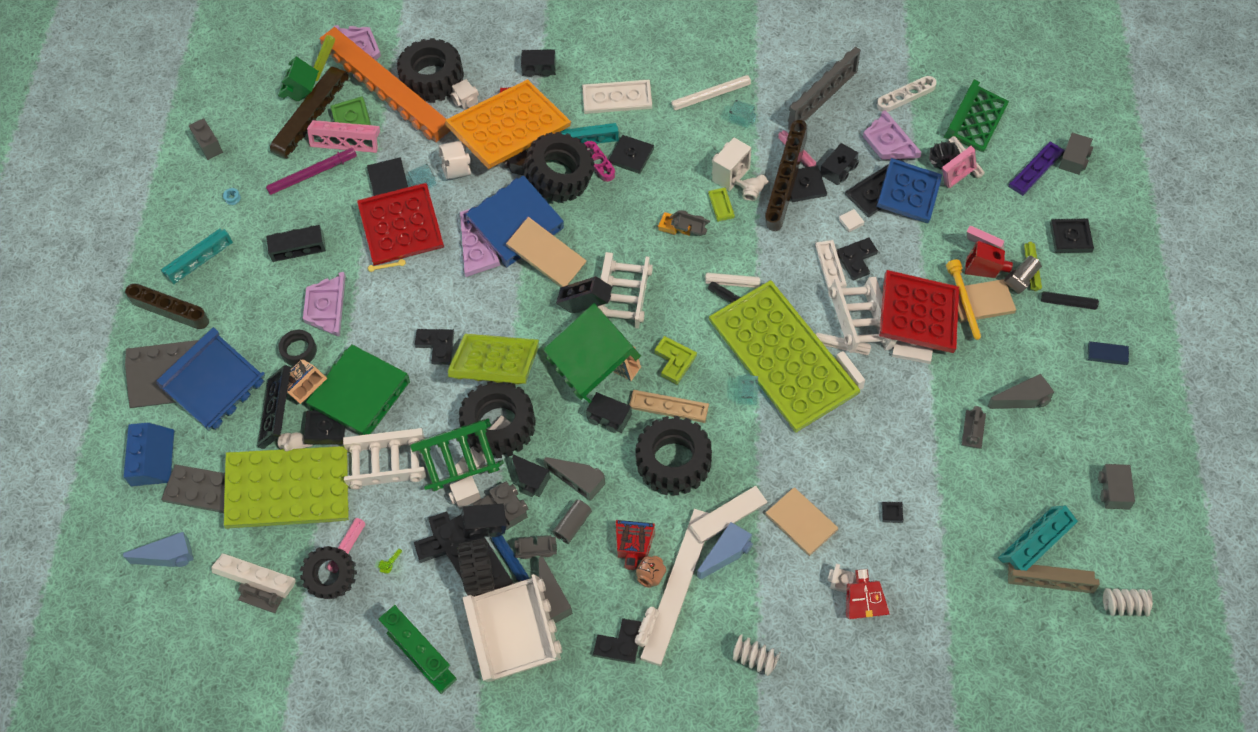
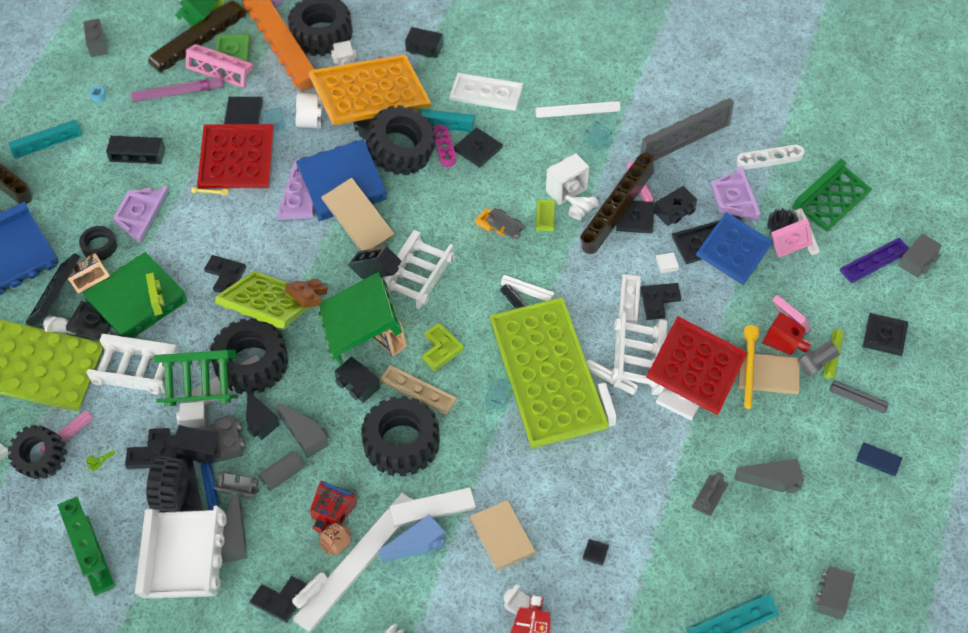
camera: 15 degrees right, 5 degrees down
(378, 378) = (156, 299): none -> lime plate
(527, 341) = (307, 292): none -> dark orange plate

